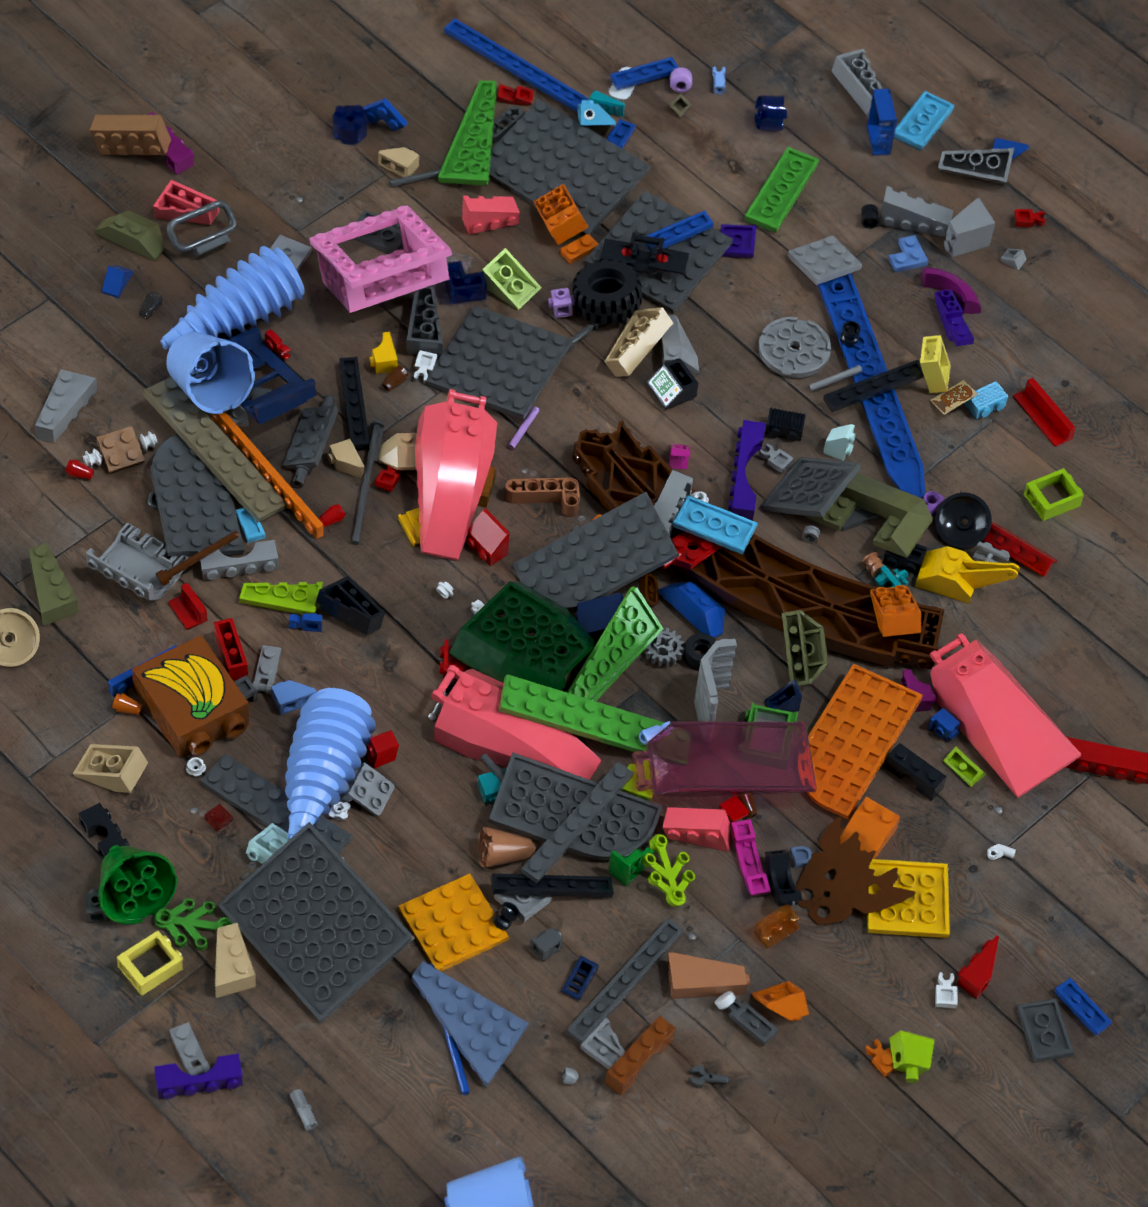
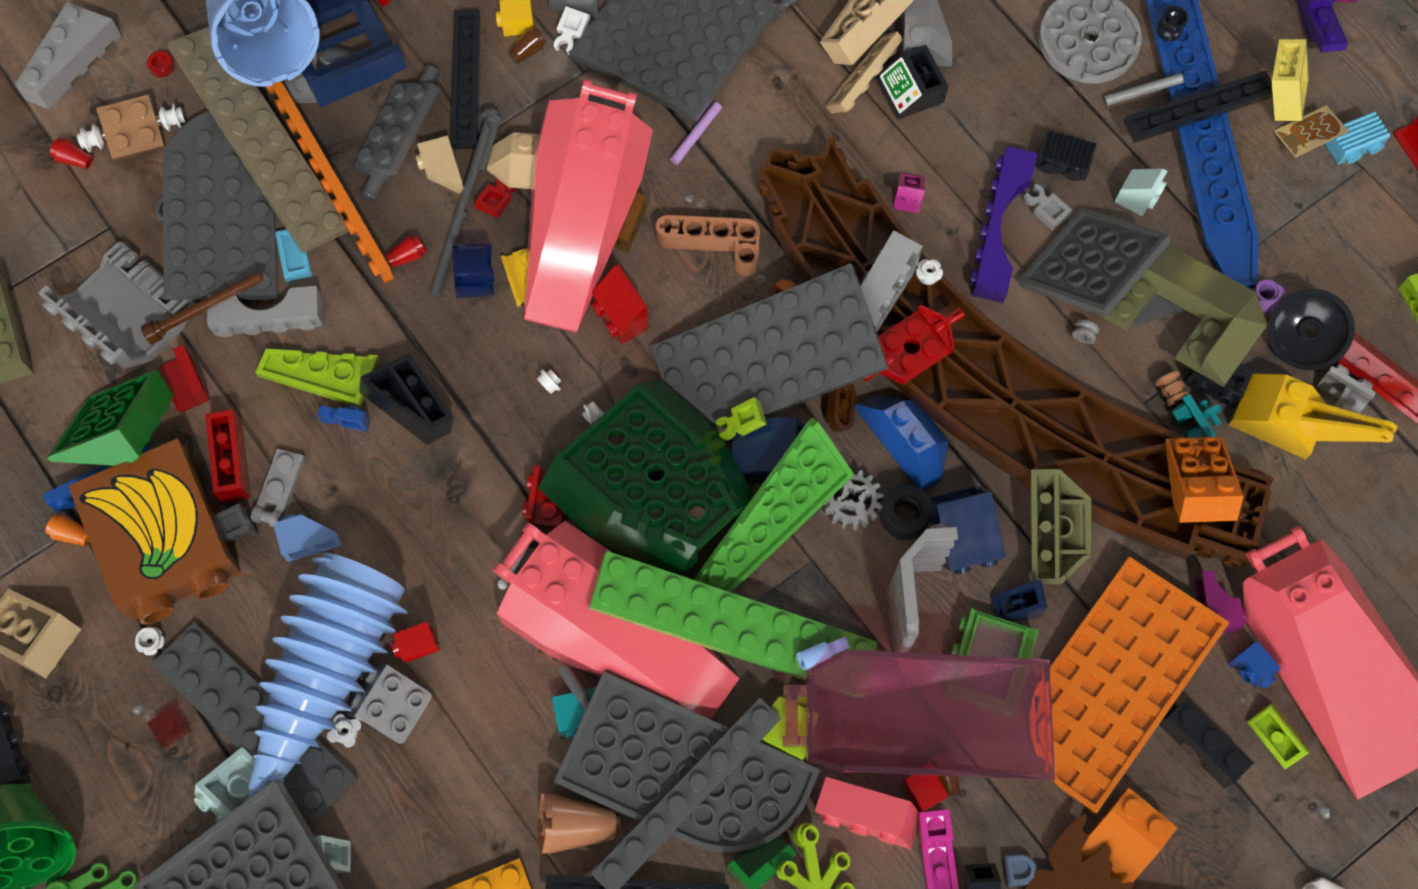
camera: 10 degrees right, 15 degrees up
(130, 408) = (160, 64): none -> red tile
(153, 630) = (114, 423): none -> green slope
(381, 523) = (473, 270): none -> clear blue brick
(584, 598) = (745, 419): none -> lime plate
(635, 384) = (868, 68): none -> tan plate
(715, 524) = (947, 318): medium azure tile -> none
(749, 659) = (977, 528): none -> dark blue slope

